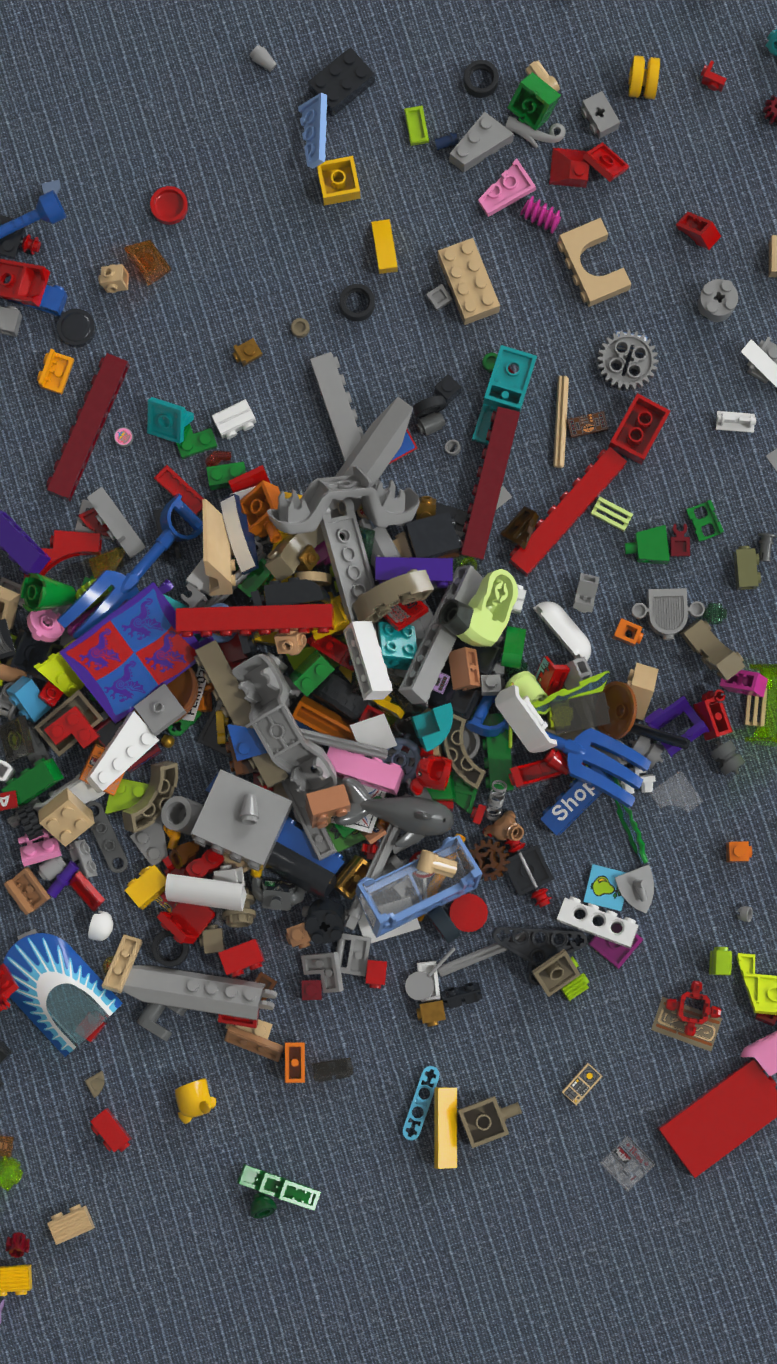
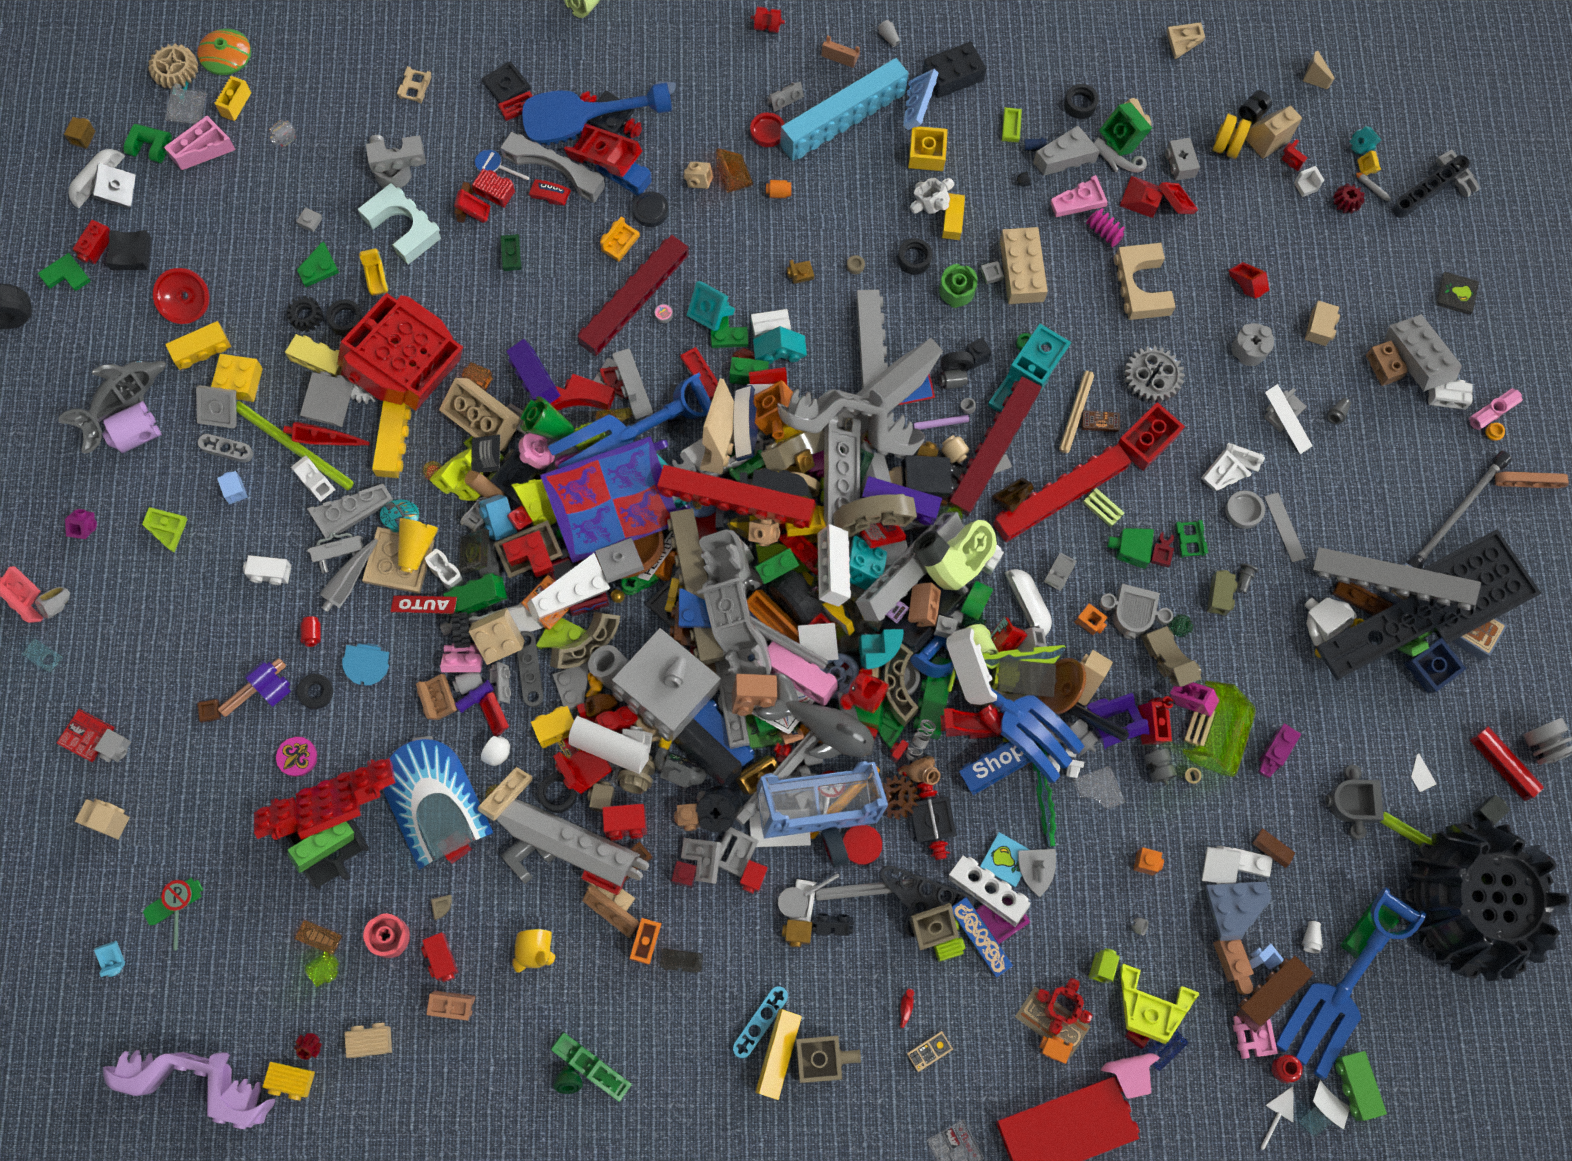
camera: 10 degrees right, 10 degrees down
(47, 1134) = (383, 925): none -> coral brick
(133, 80) = (767, 19): none -> red wheel
(134, 1170) = (450, 1005): none -> nougat hinge
(171, 167) = (787, 96): none -> light grey hinge
(199, 268) = (778, 189): none -> orange brick
(218, 95) = (840, 53): none -> nougat hinge
(241, 162) = (844, 109): none -> medium azure brick
(250, 440) = (780, 344): none -> teal brick
(348, 227) = (926, 201): none -> white piece
(405, 313) = (958, 285): none -> bright green brick
(431, 471) = (941, 422): none -> lavender bar
(433, 863) = (842, 782): tan piece -> none
(444, 185) = (1023, 179): none -> black hinge
(452, 497) = (955, 449): none -> tan head
(550, 1050) = (906, 1007): none -> red bar
(601, 967) = (981, 937): none -> tile
(661, 33) = (1255, 106): none -> black wheel
(684, 57) = (1273, 131): none -> tan slope
(695, 1049) = (1055, 1048): none -> orange brick
(721, 443) = (1224, 471): none -> white wing
(734, 103) = (1309, 181): none -> white panel
(749, 476) = (1245, 509): none -> light grey piece
(757, 760) = (1197, 774): none -> tan hinge

